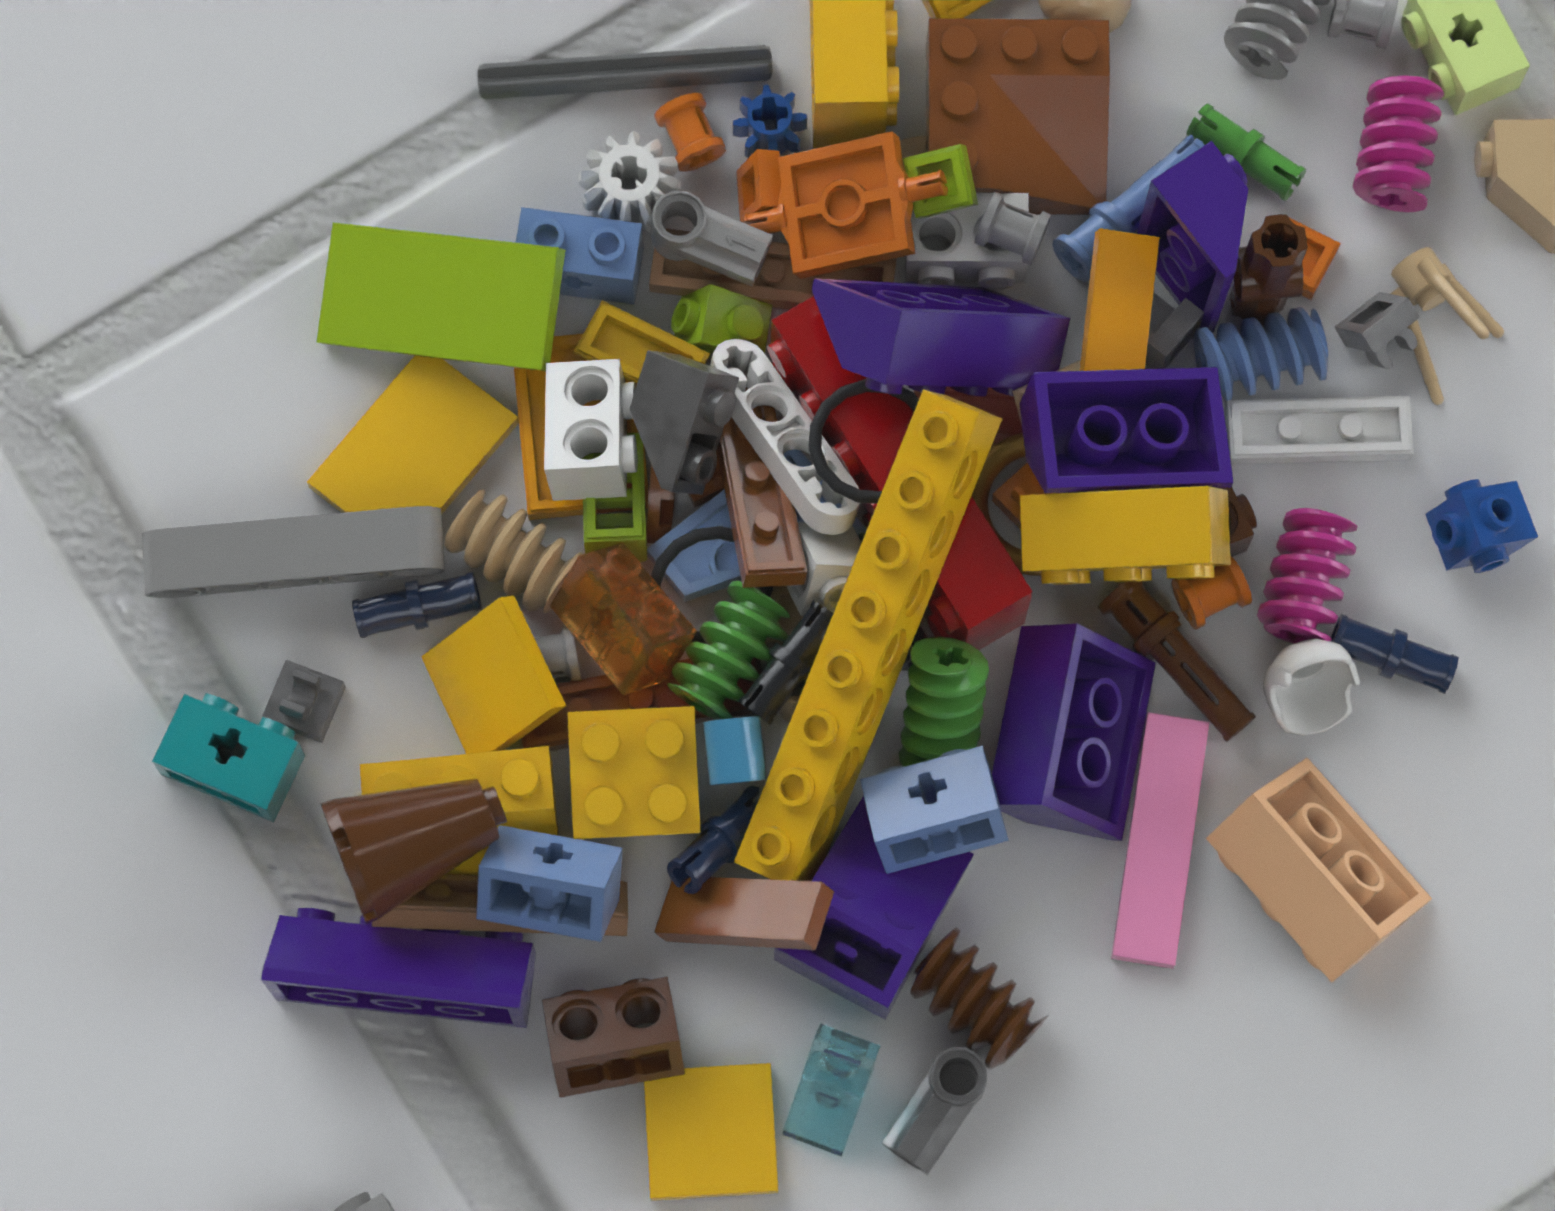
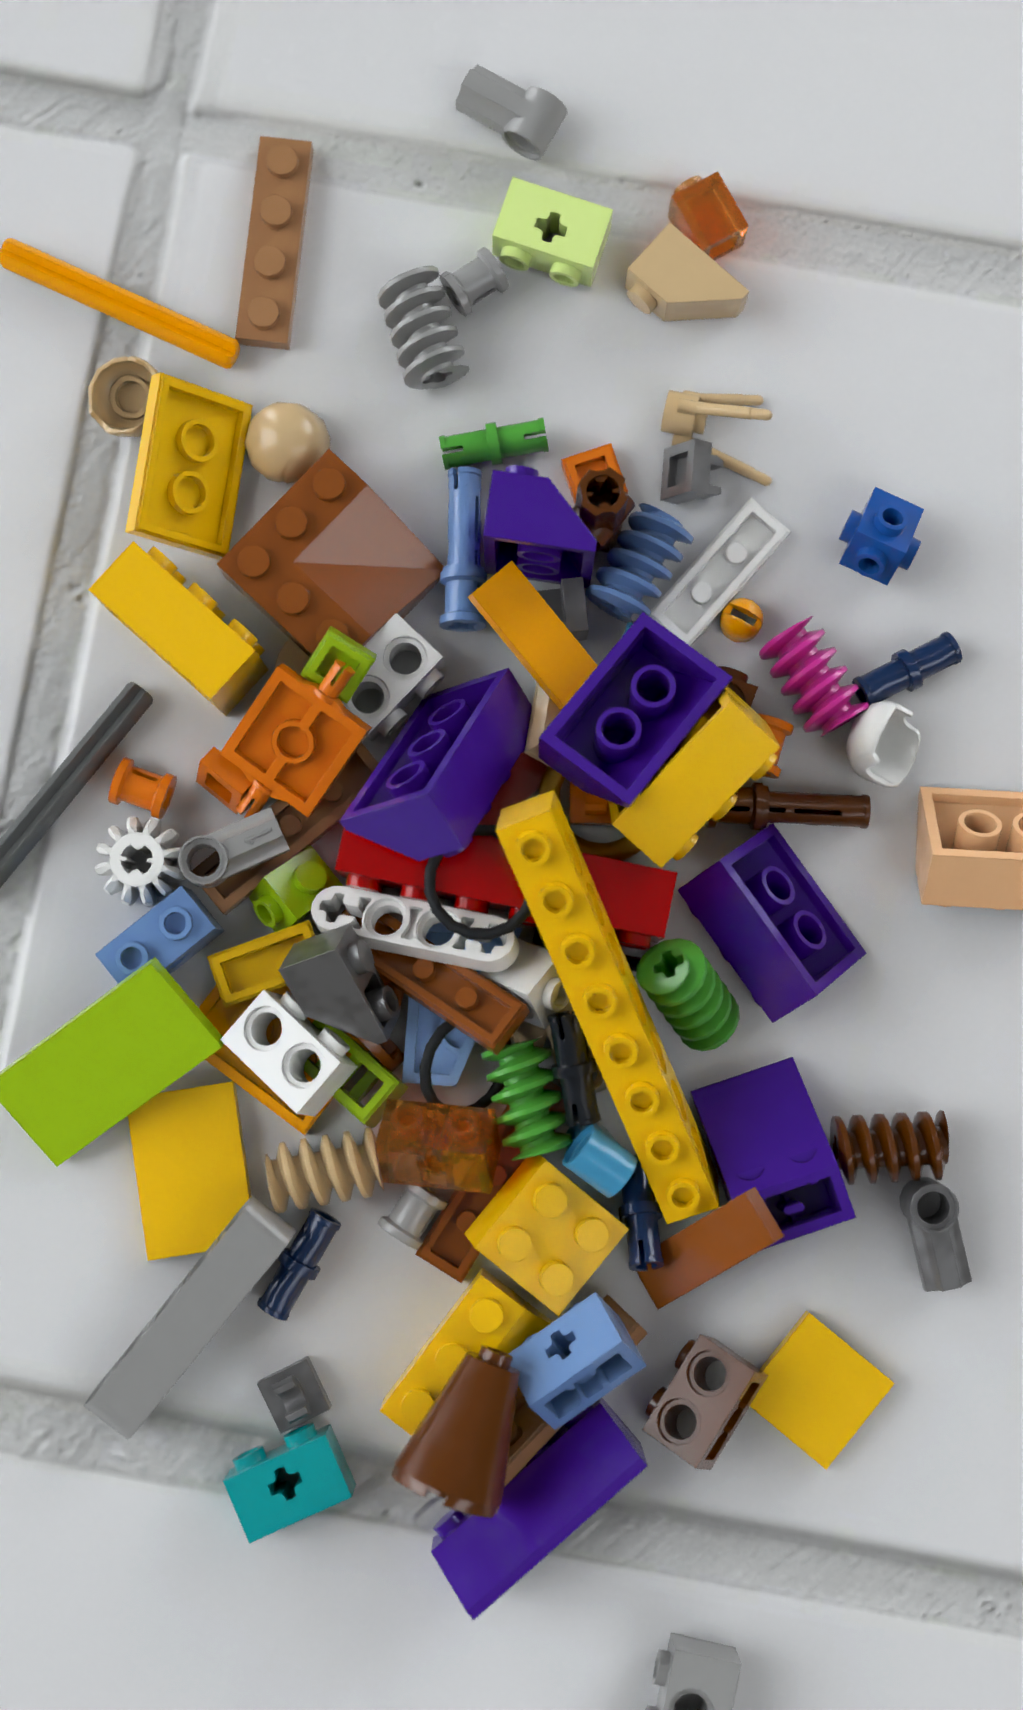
camera: 45 degrees left, 10 degrees up
(493, 678) = (400, 1265): yellow tile -> none
(770, 107) = (185, 716): blue gear -> none
(831, 1089) = (863, 1291): clear light blue slope -> none
(933, 809) = (774, 1046): medium blue brick -> none
(1012, 228) = (415, 648): light grey bush -> none
(1160, 840) = (890, 930): bright pink tile -> none
(1289, 486) = (736, 628): none -> light orange hinge
(1395, 143) = (579, 344): dark pink piece -> none

